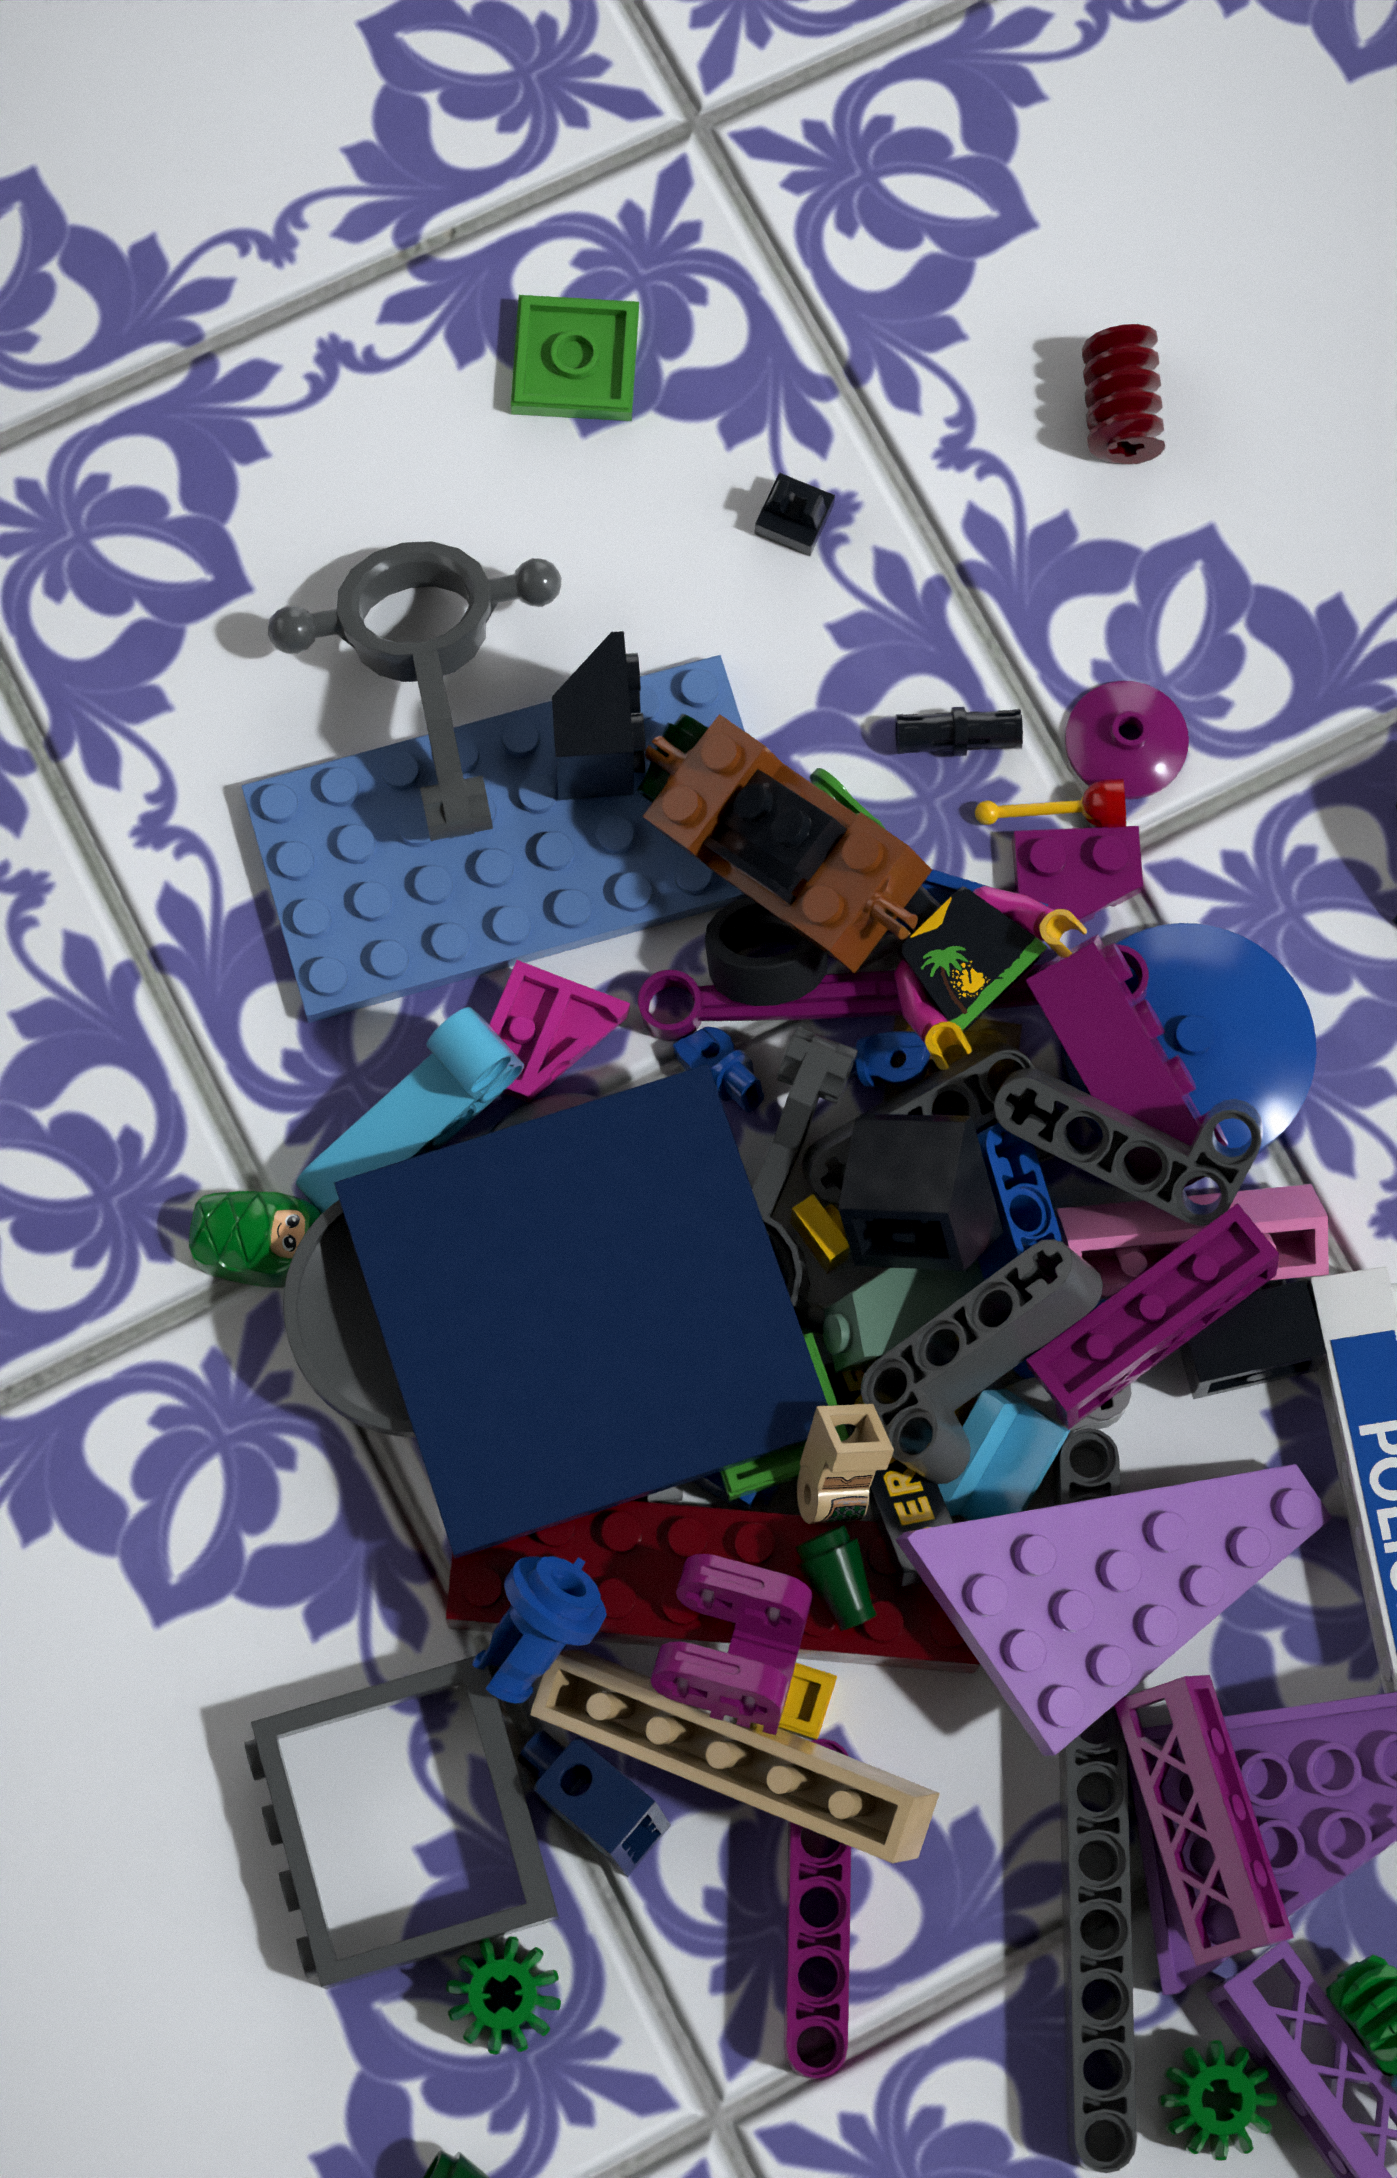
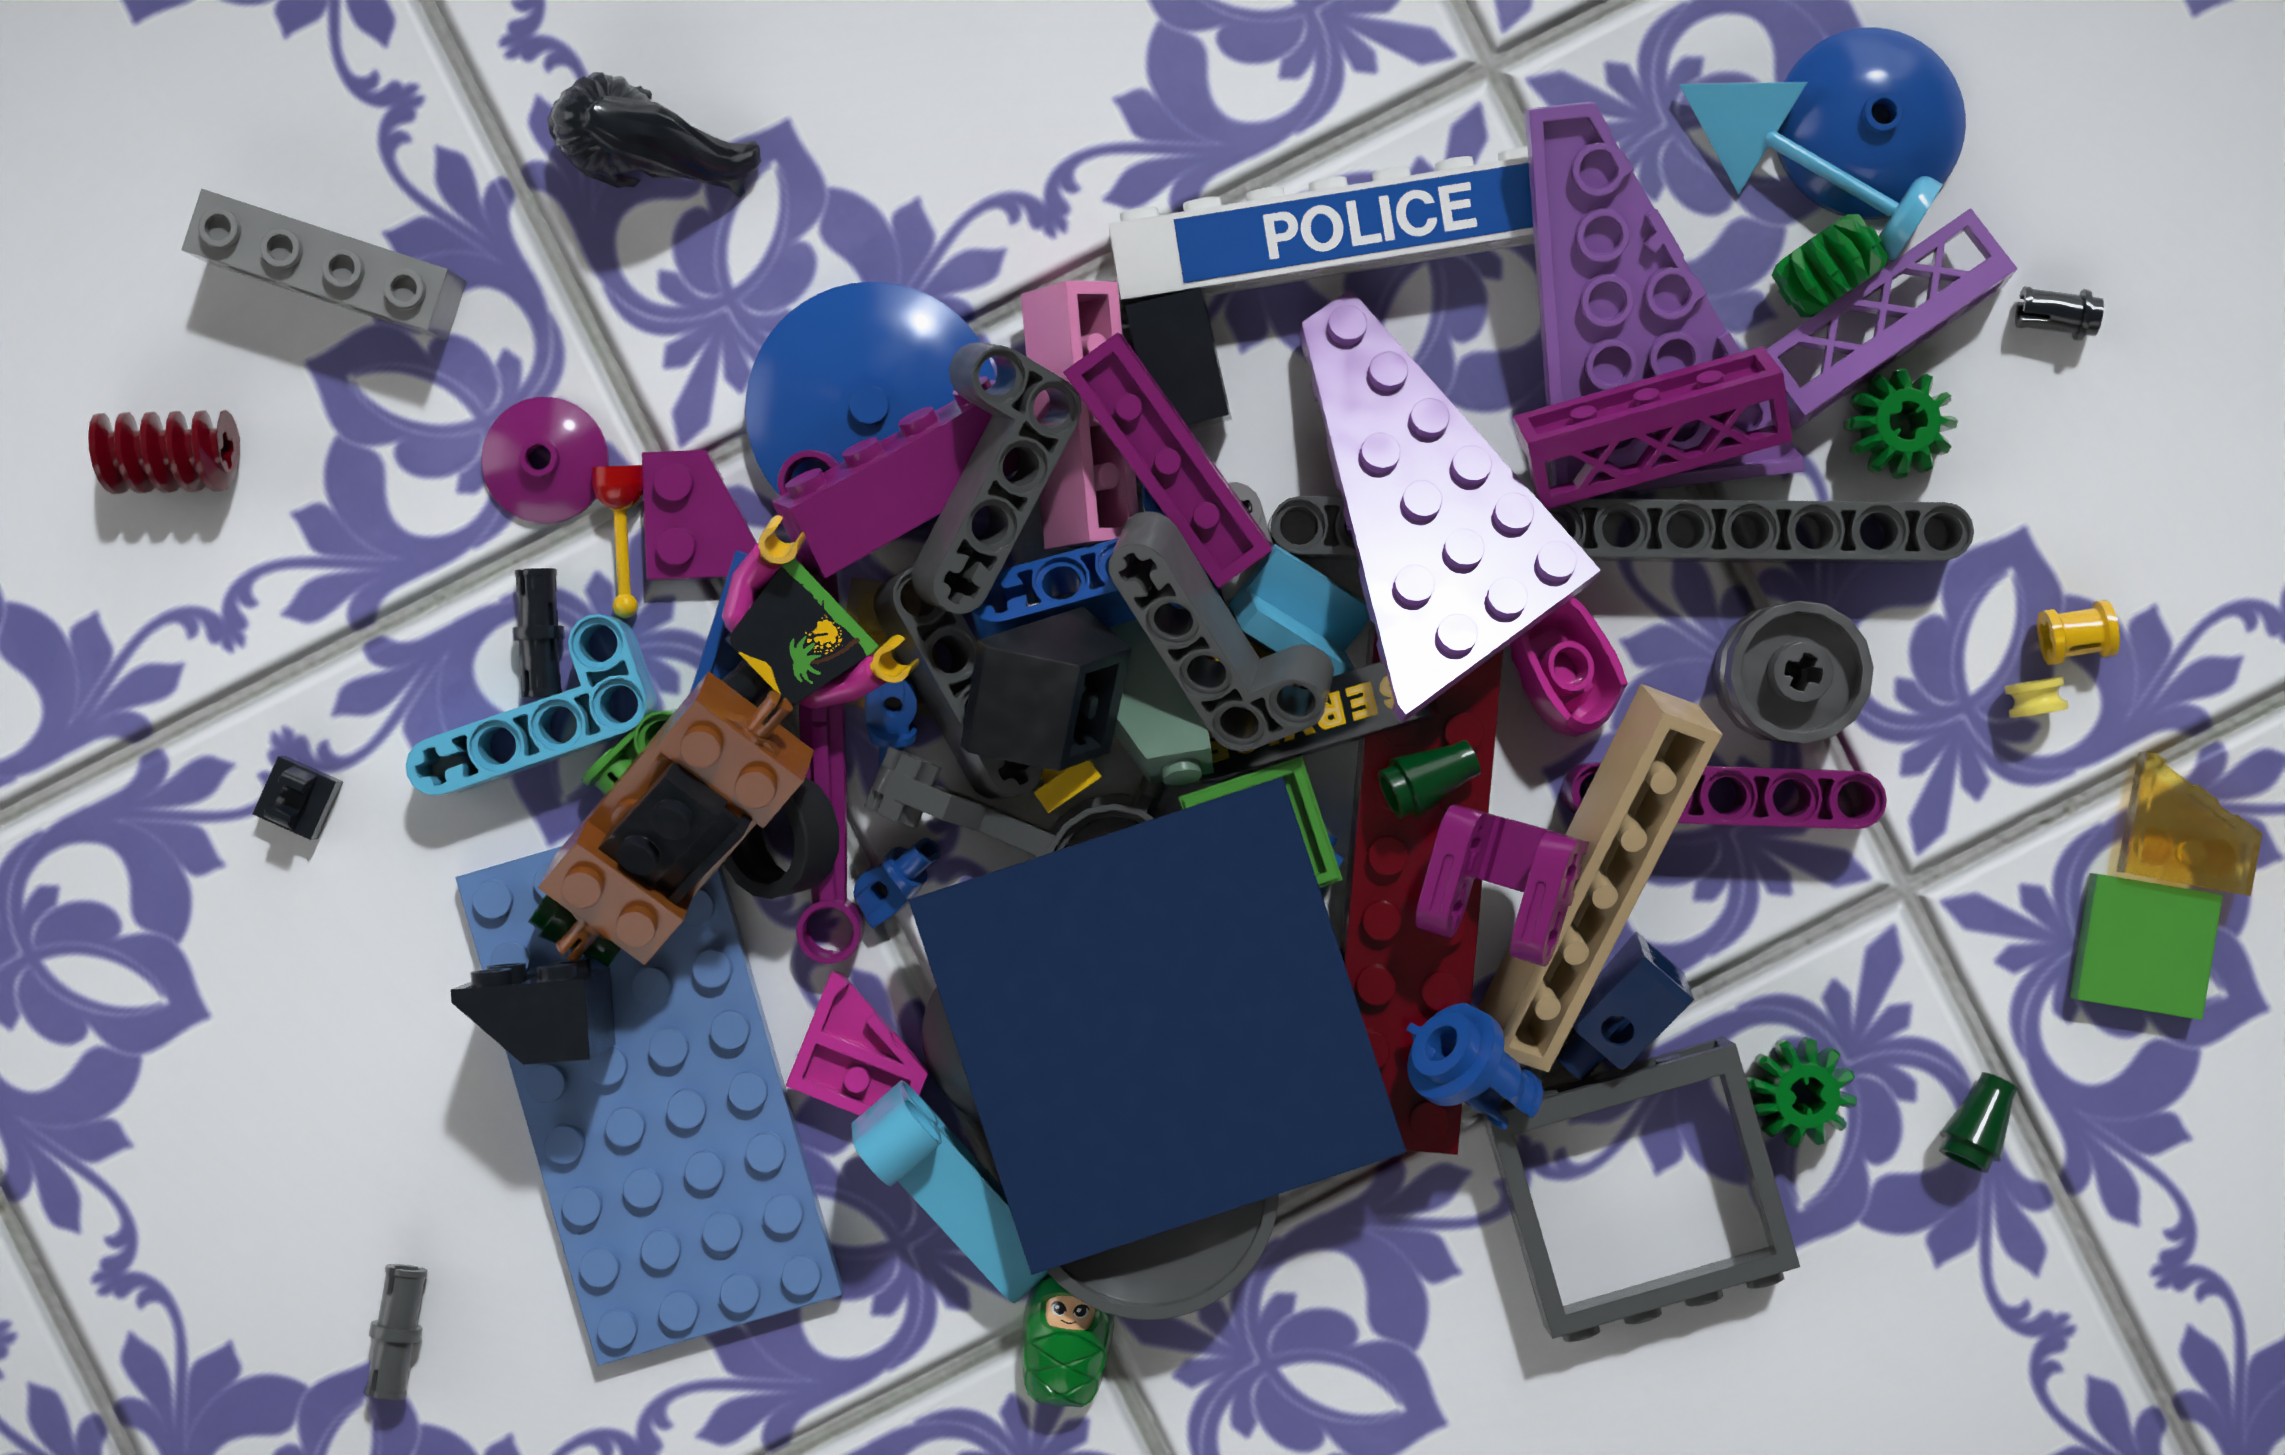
camera: 85 degrees left, 15 degrees up
(265, 597) = (395, 1332): none -> dark grey pin
(454, 804) = (625, 1153): dark grey piece -> none
(575, 358) = (120, 1026): bright green tile -> none
(807, 1701) = (1523, 801): yellow tile -> none
(838, 1474) = (1325, 773): tan leg -> none
(873, 724) = (532, 721): none -> medium azure beam
(951, 1737) = (1569, 670): none -> dark pink piece
(989, 1971) = (1830, 667): none -> flat silver wheel
(1306, 536) = (324, 264): none -> light grey brick

